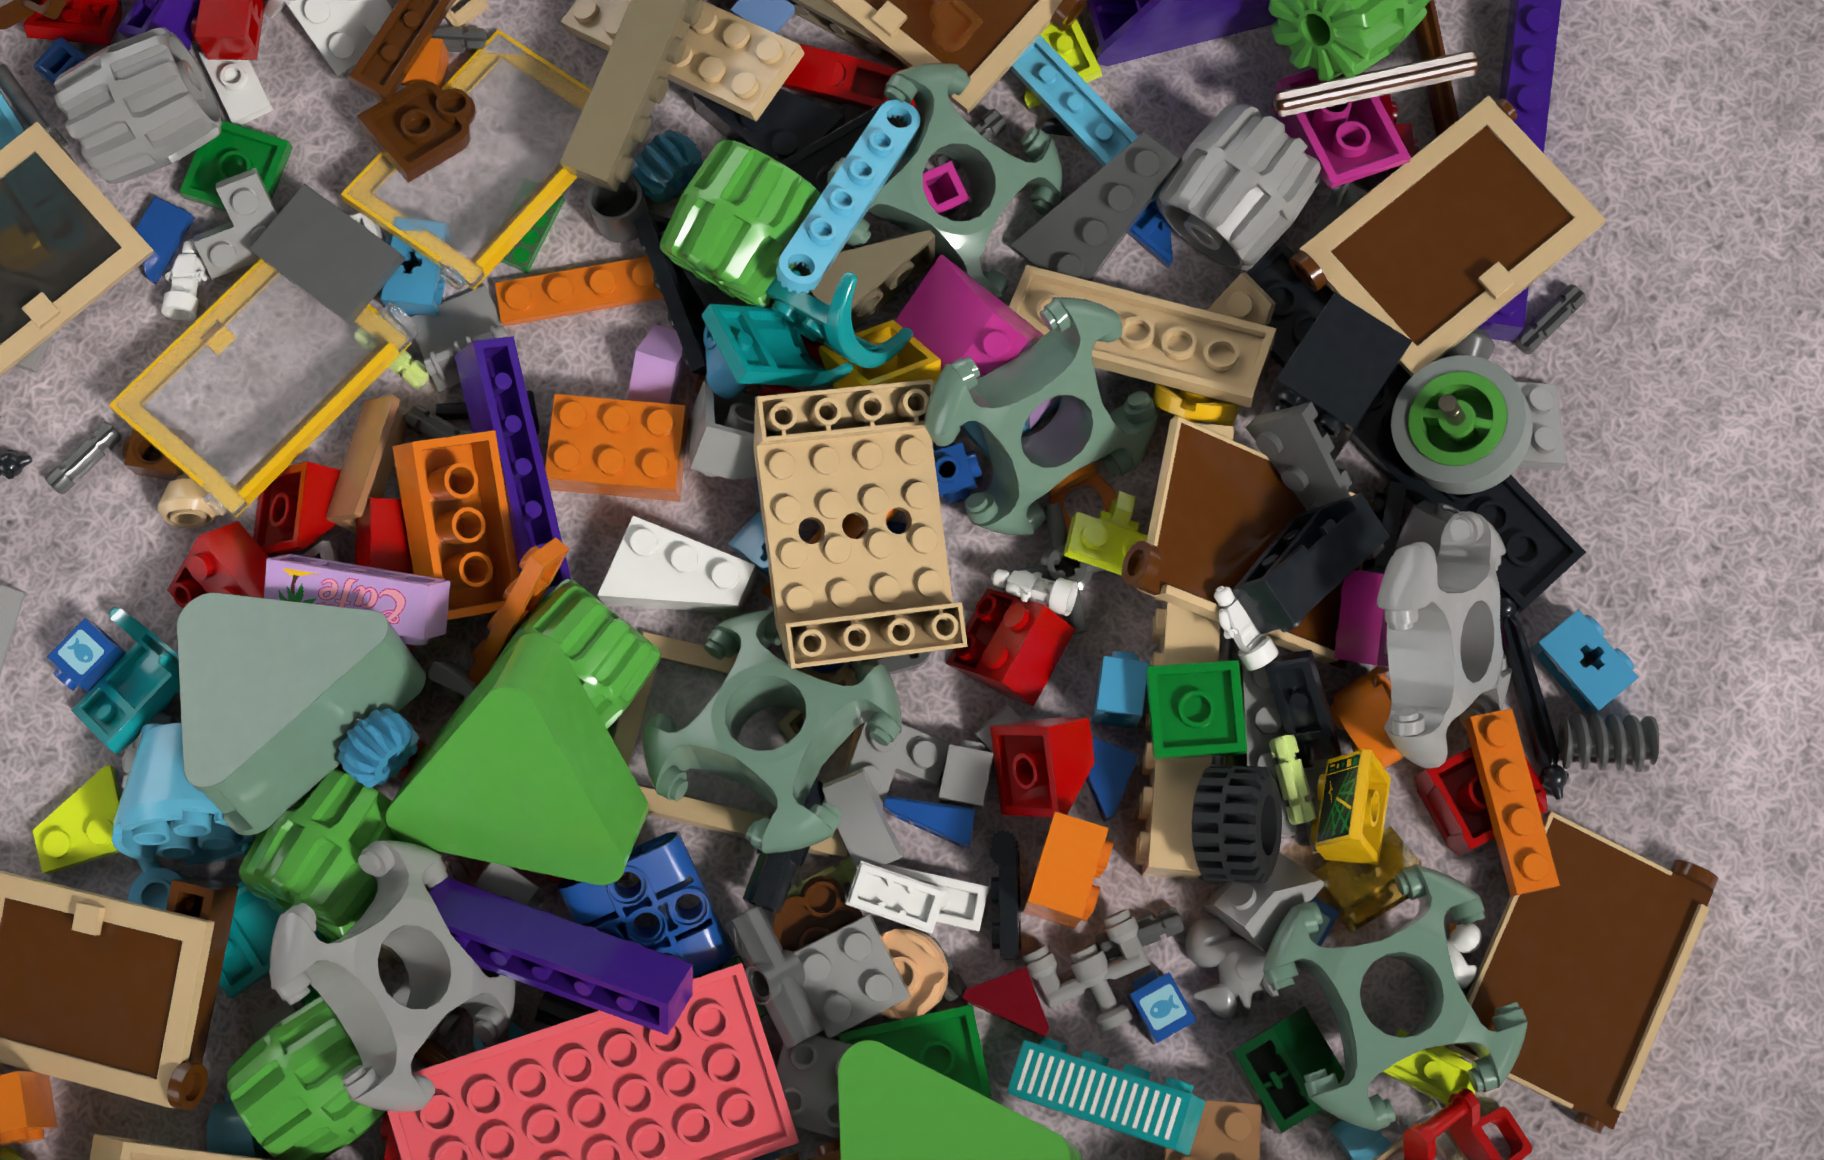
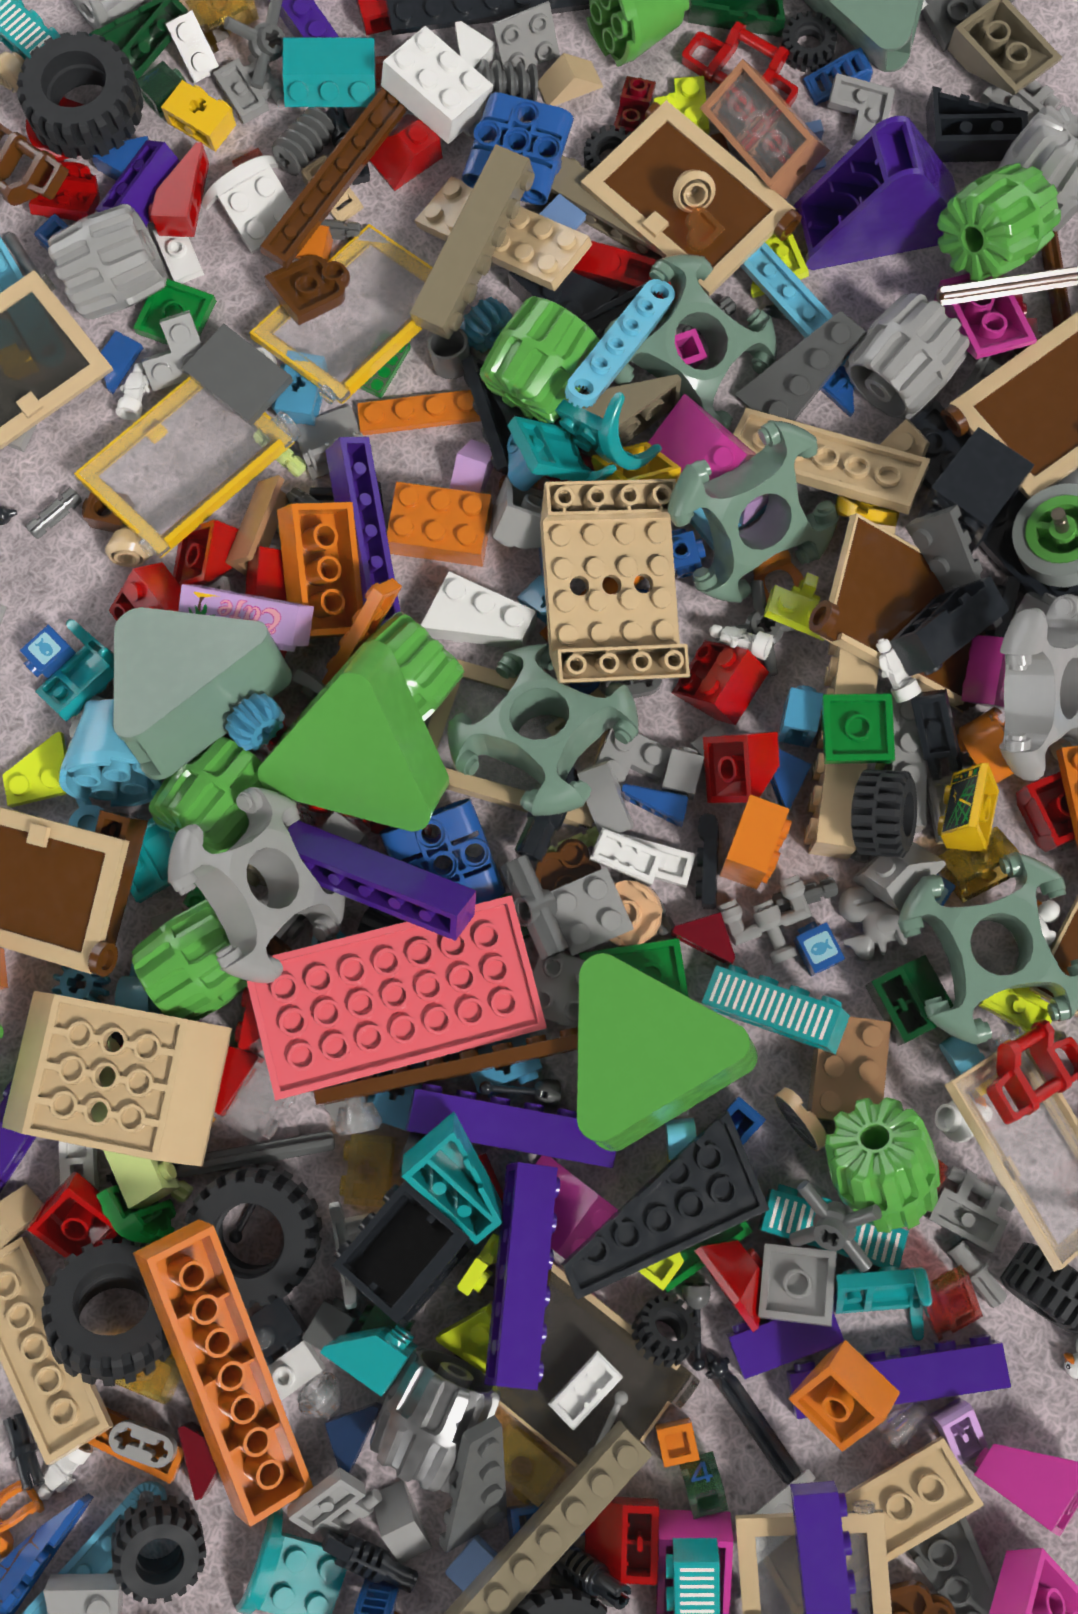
camera: 10 degrees right, 0 degrees up
(151, 1133) = (90, 992): none -> dark azure gear
(1292, 779) = (926, 785): yellowish green axle -> none

